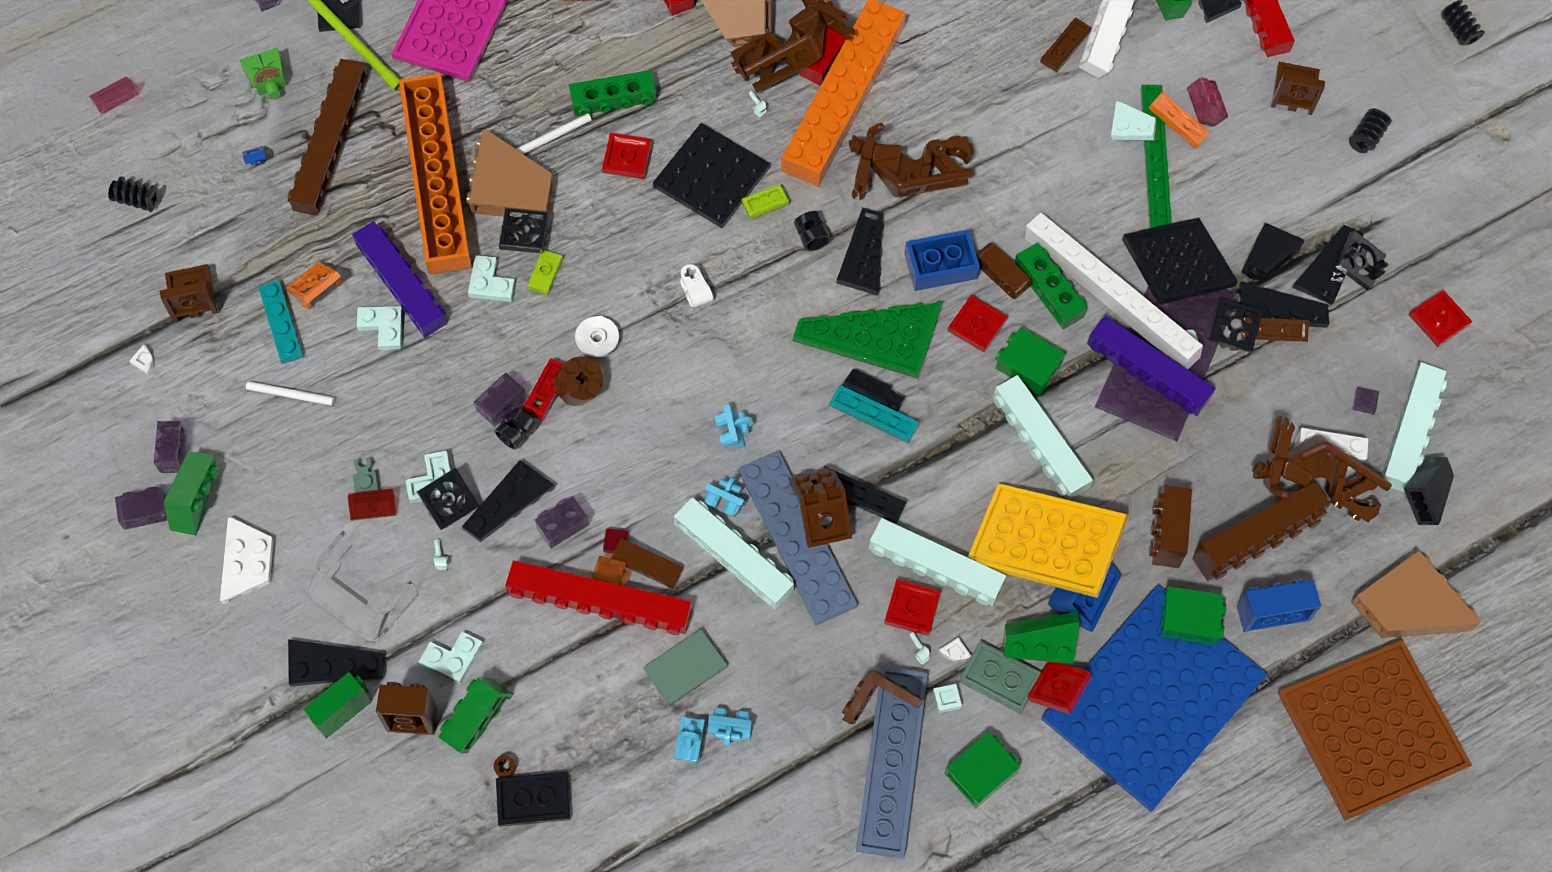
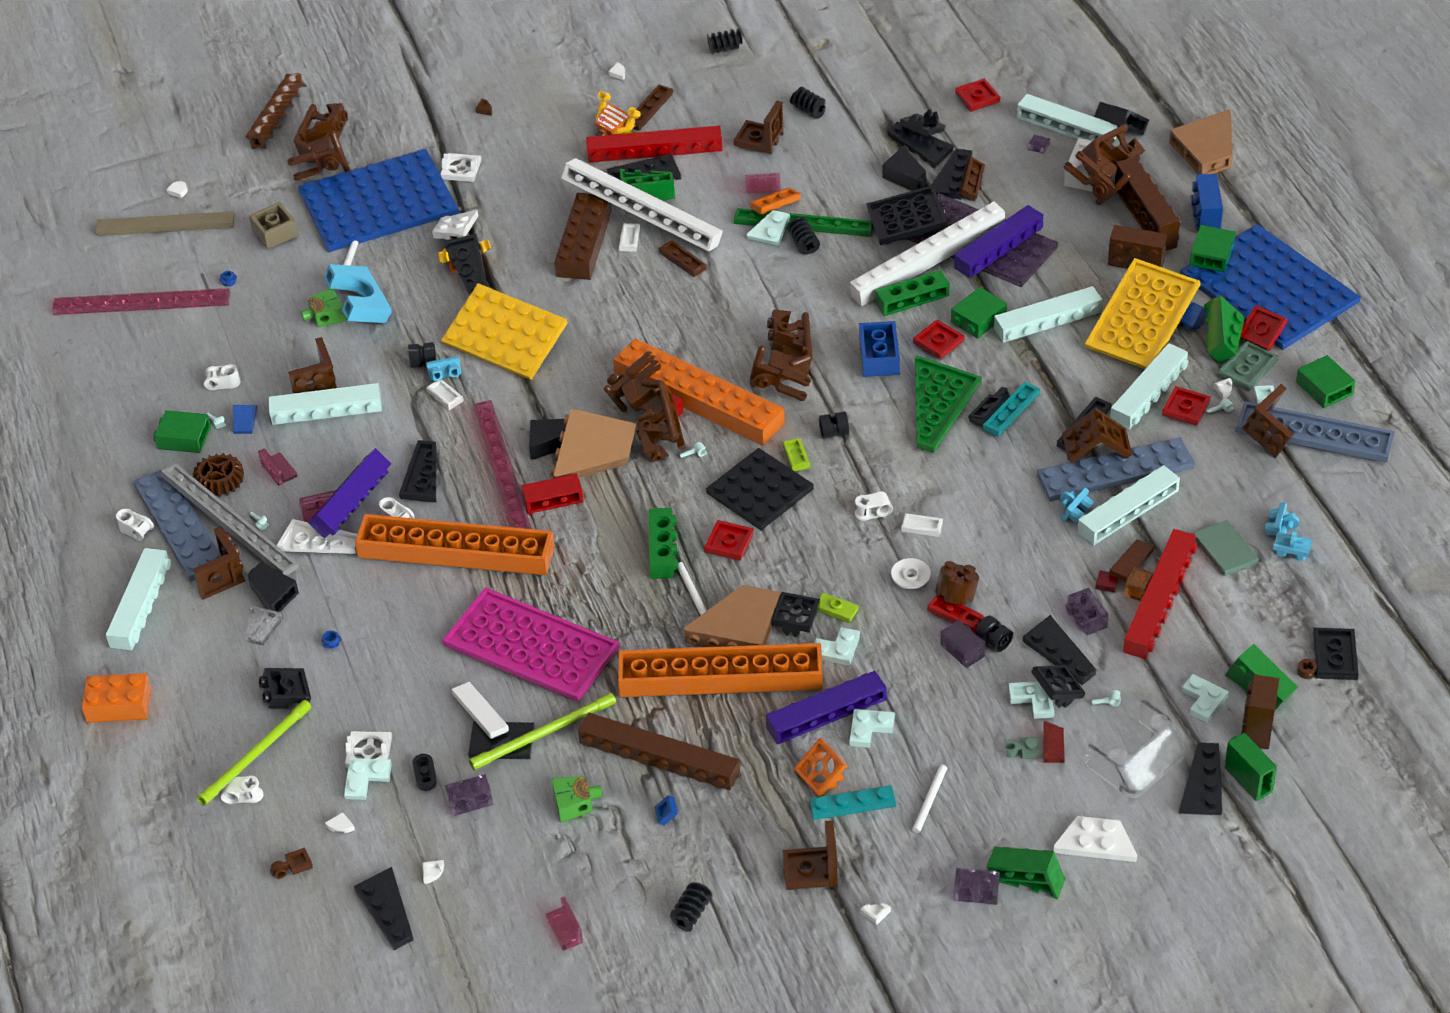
camera: 75 degrees left, 20 degrees down
(141, 508) = (1037, 911): clear purple brick -> none
(678, 342) = (922, 525): none -> white tile
(734, 435) = (1011, 491): medium azure hips -> none
(862, 257) = (868, 402): black wing -> none
(1003, 271) = (902, 313): reddish brown beam -> none
(1123, 156) = (803, 235): none -> black piece
(1216, 335) = (965, 183): black piece -> none
(1374, 730) = (1303, 178): dark orange plate -> none

